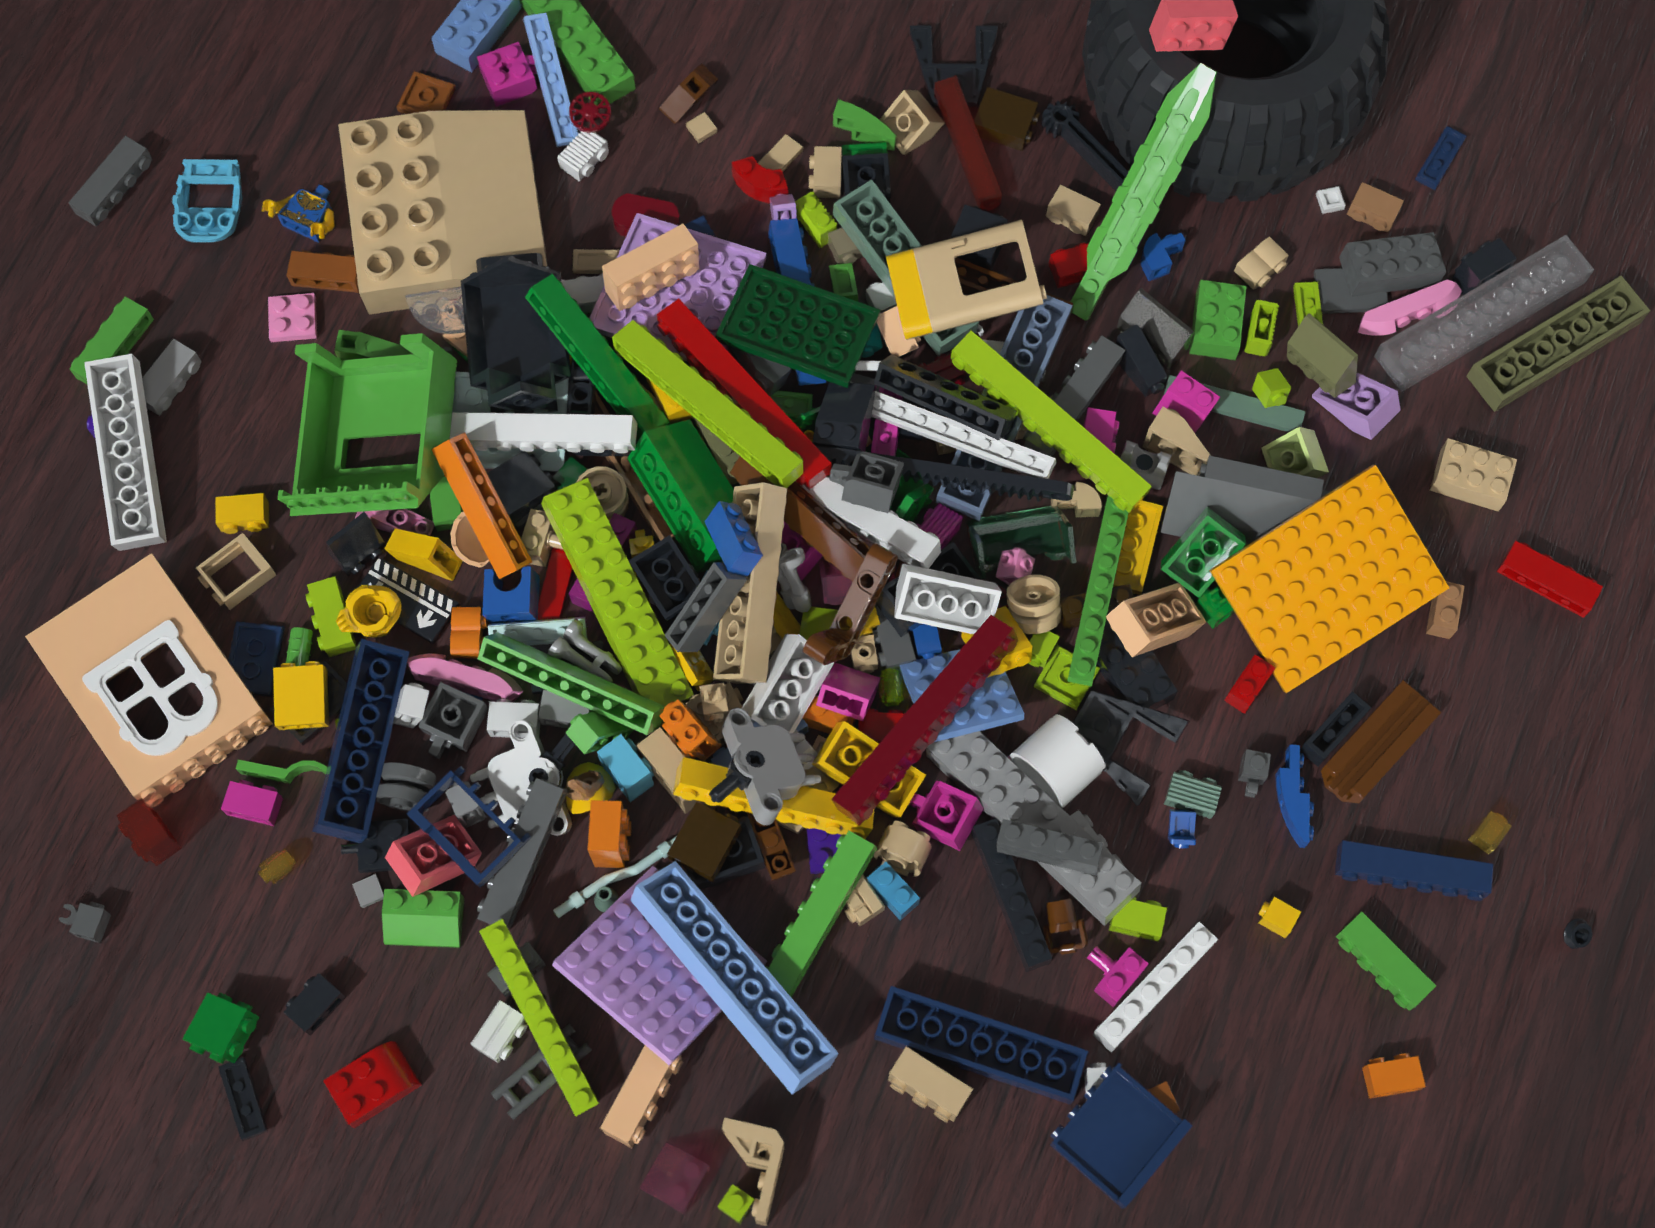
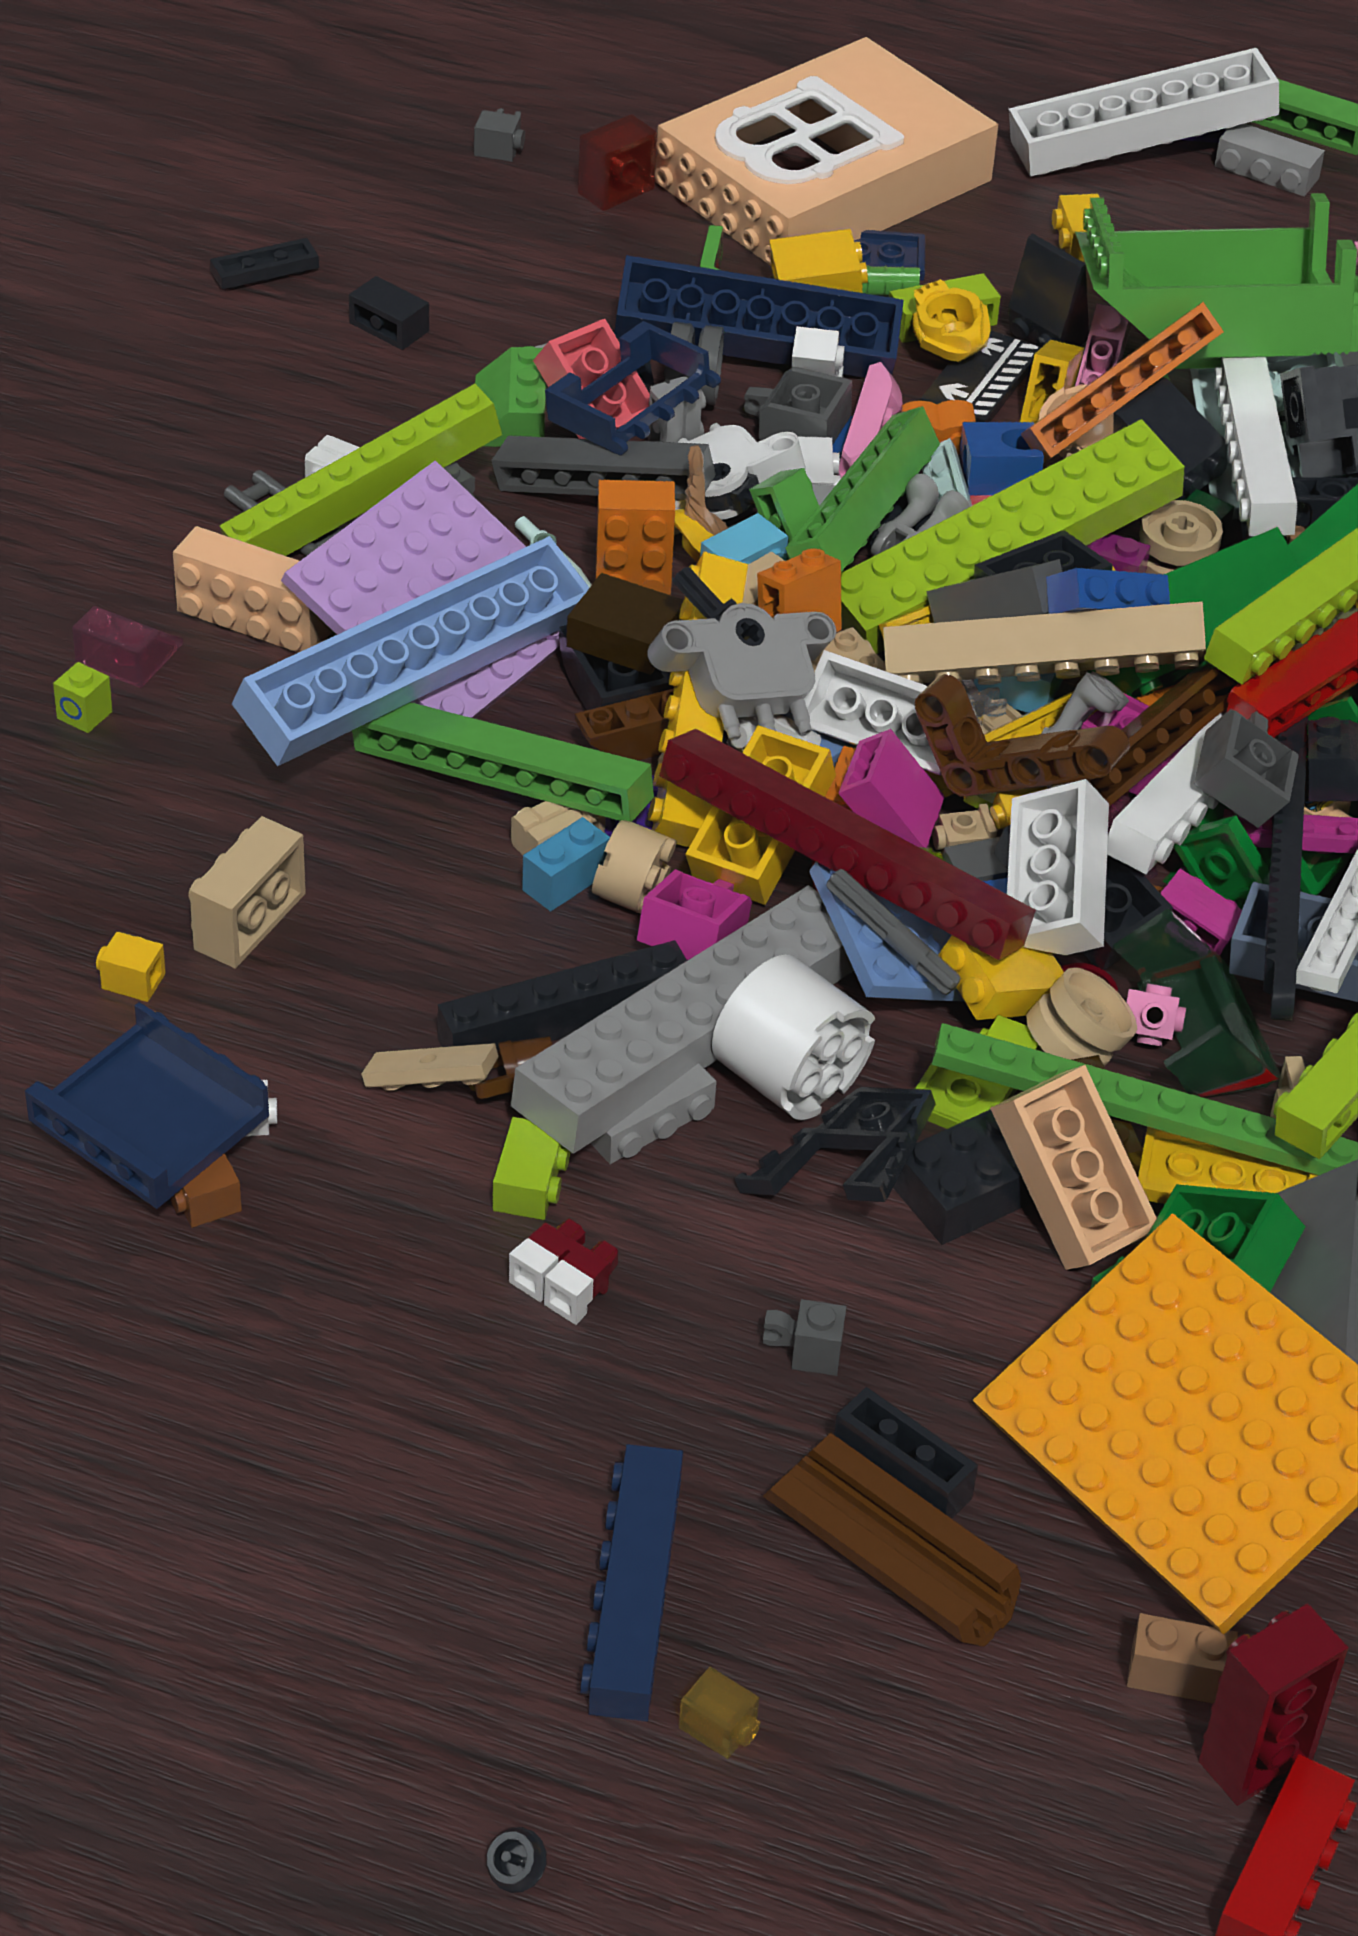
camera: 85 degrees right, 25 degrees down
(221, 1028) = (355, 231): green brick -> none
(223, 557) = (993, 201): tan window -> none
(252, 803) = (669, 241): dark pink brick -> none
(276, 866) = (579, 276): clear yellow brick -> none
(372, 1083) = (279, 361): red brick -> none
(714, 702) = (856, 631): tan brick -> none
(749, 1142) = (145, 721): tan bracket -> none
(980, 1158) = (131, 966): none -> yellow brick
(981, 1045) = (312, 956): dark blue brick -> none
(987, 698) = (893, 931): none -> dark grey axle
(1049, 847) = (631, 986): dark grey brick -> none
(1065, 988) = (430, 1066): none -> tan tile
(1118, 973) = (429, 1138): dark pink brick -> none
(1155, 987) = (408, 1185): white brick -> none
(1182, 828) = (696, 1234): blue bracket -> none
(1193, 794) = (760, 1250): sand green brick -> none
(1213, 902) = (560, 1270): none -> hips
(1249, 684) = (977, 1333): red brick -> none
(1278, 916) = (536, 1367): yellow brick -> none
(1294, 805) = (752, 1394): blue slope -> none
(1385, 962) = (455, 1525): bright green brick -> none
(1393, 1076) = (237, 1526): orange brick -> none
(1499, 568) = (1271, 1702): none -> dark red brick

